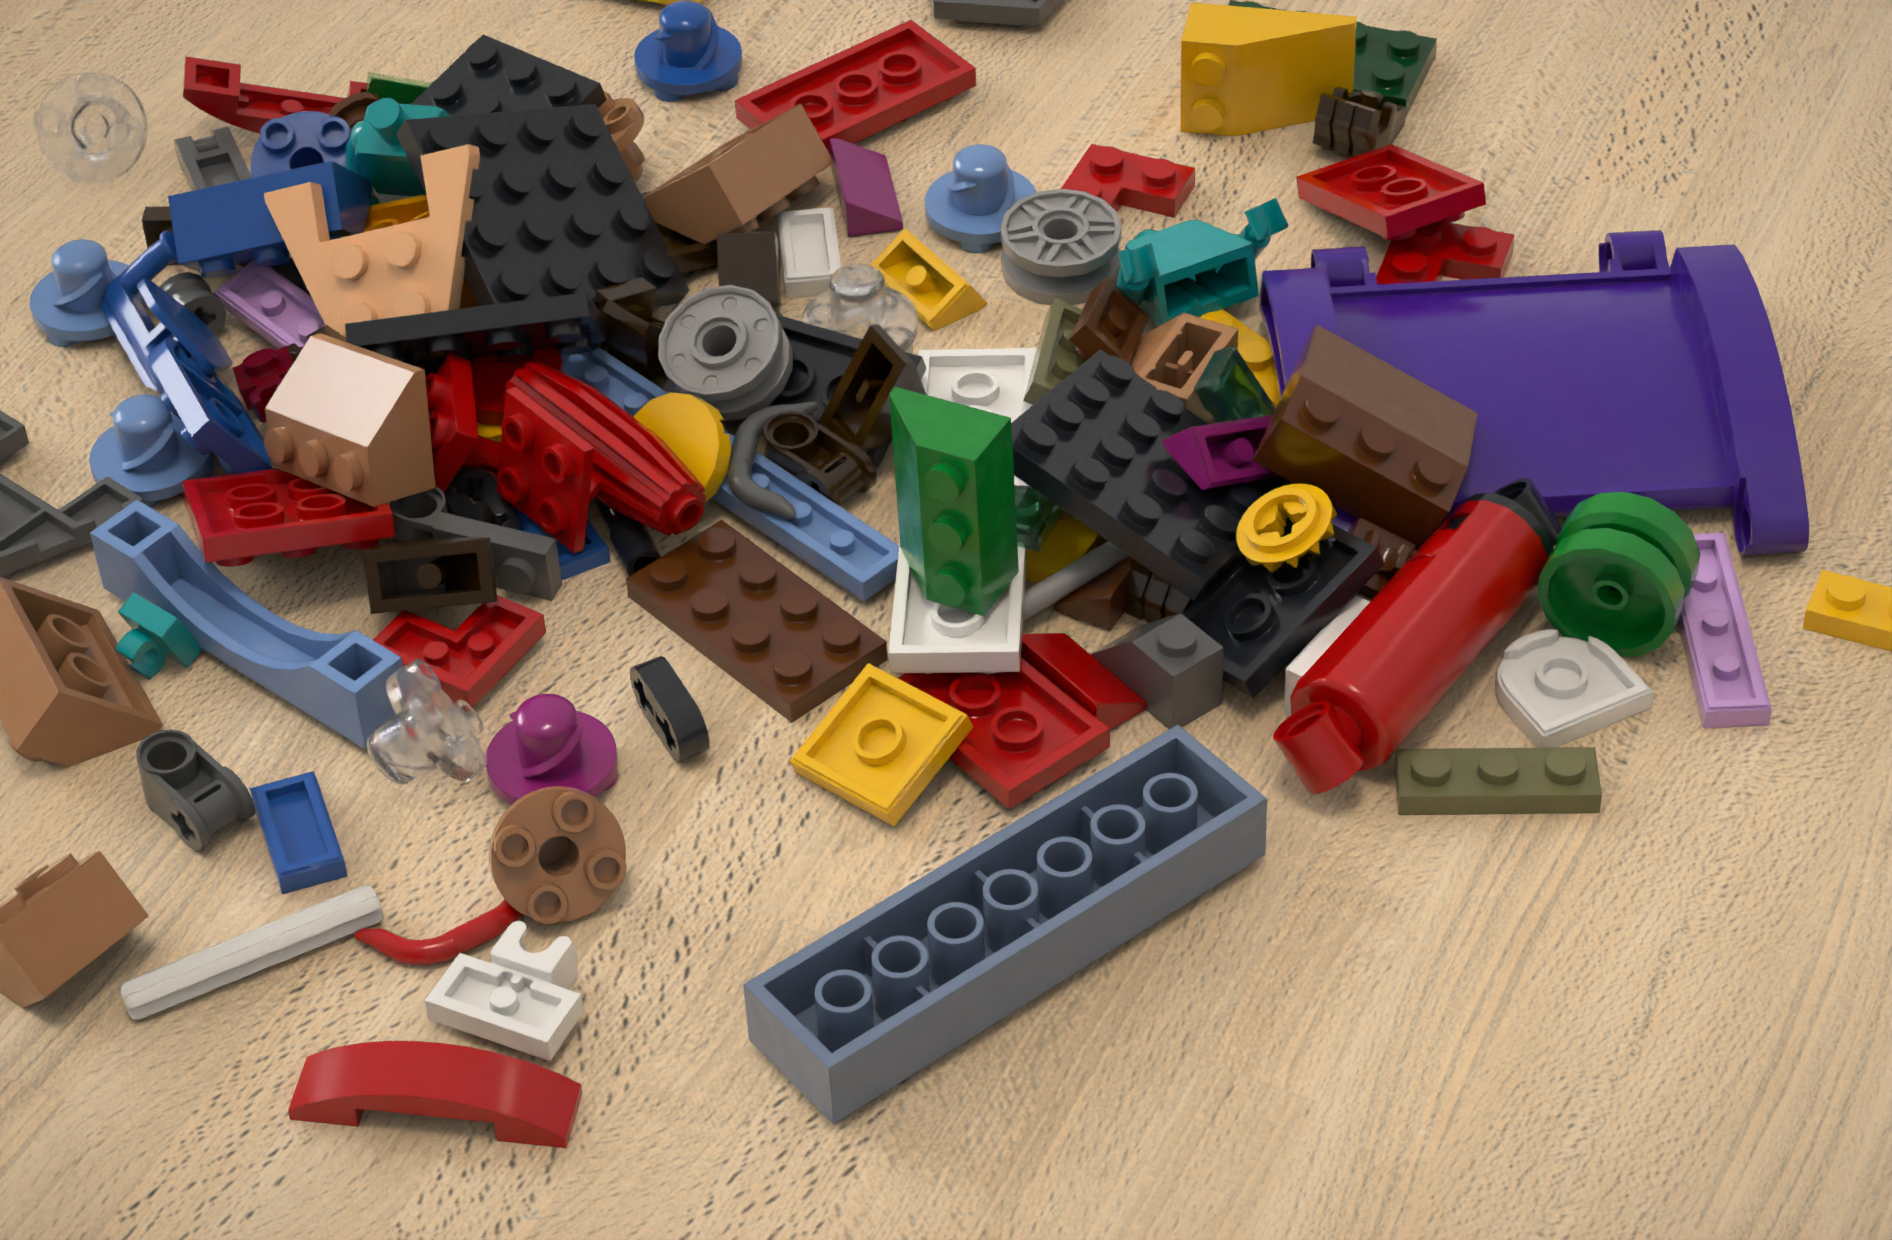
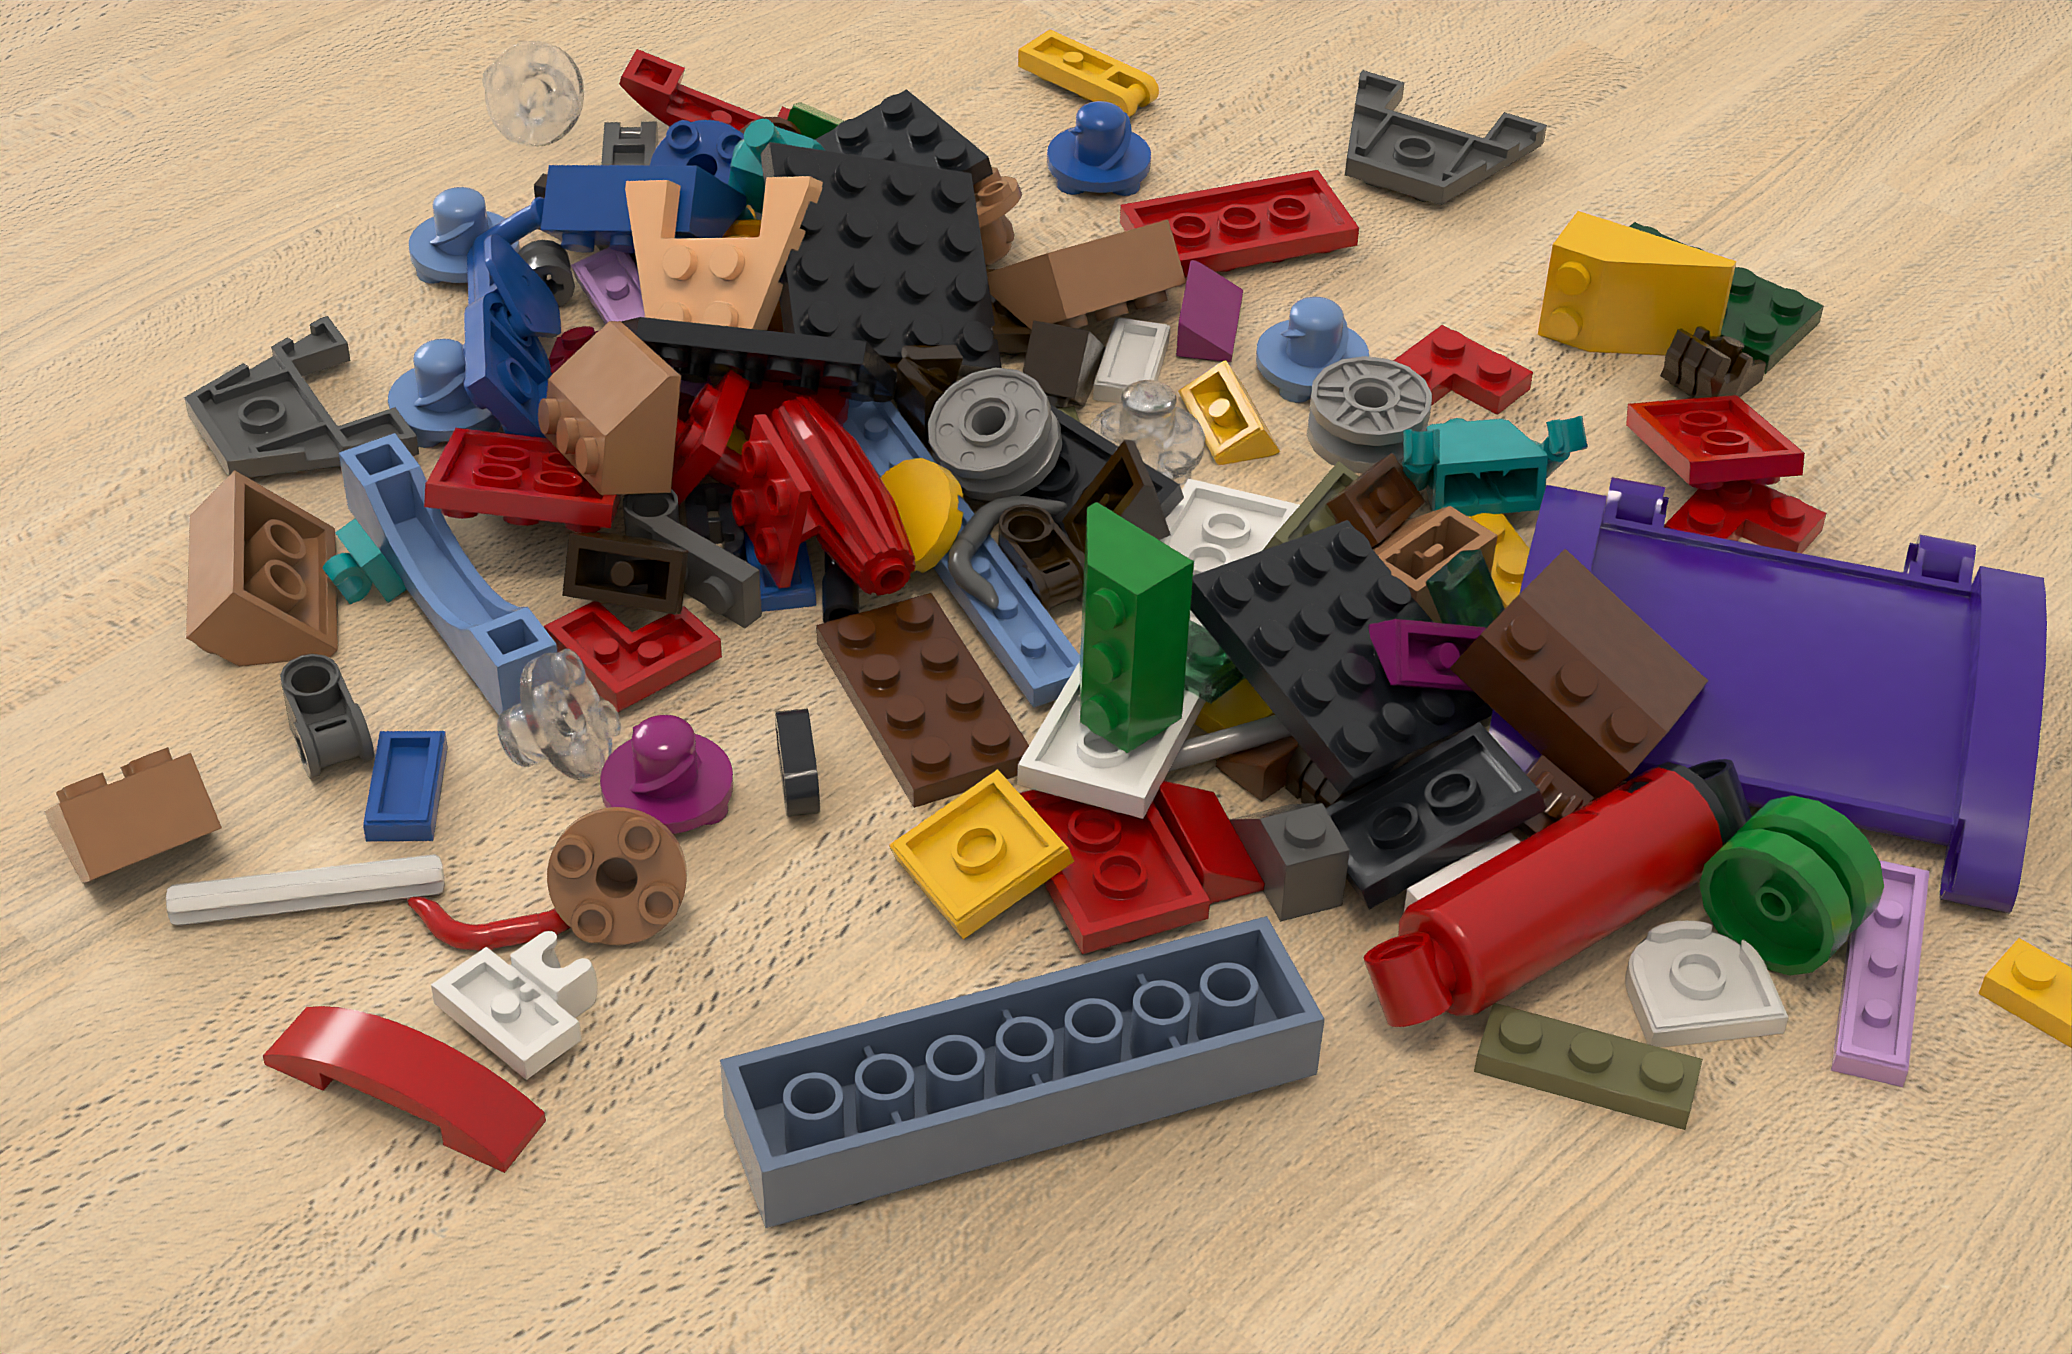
camera: 15 degrees right, 0 degrees up
(1264, 524) = (1437, 738): yellow gear -> none

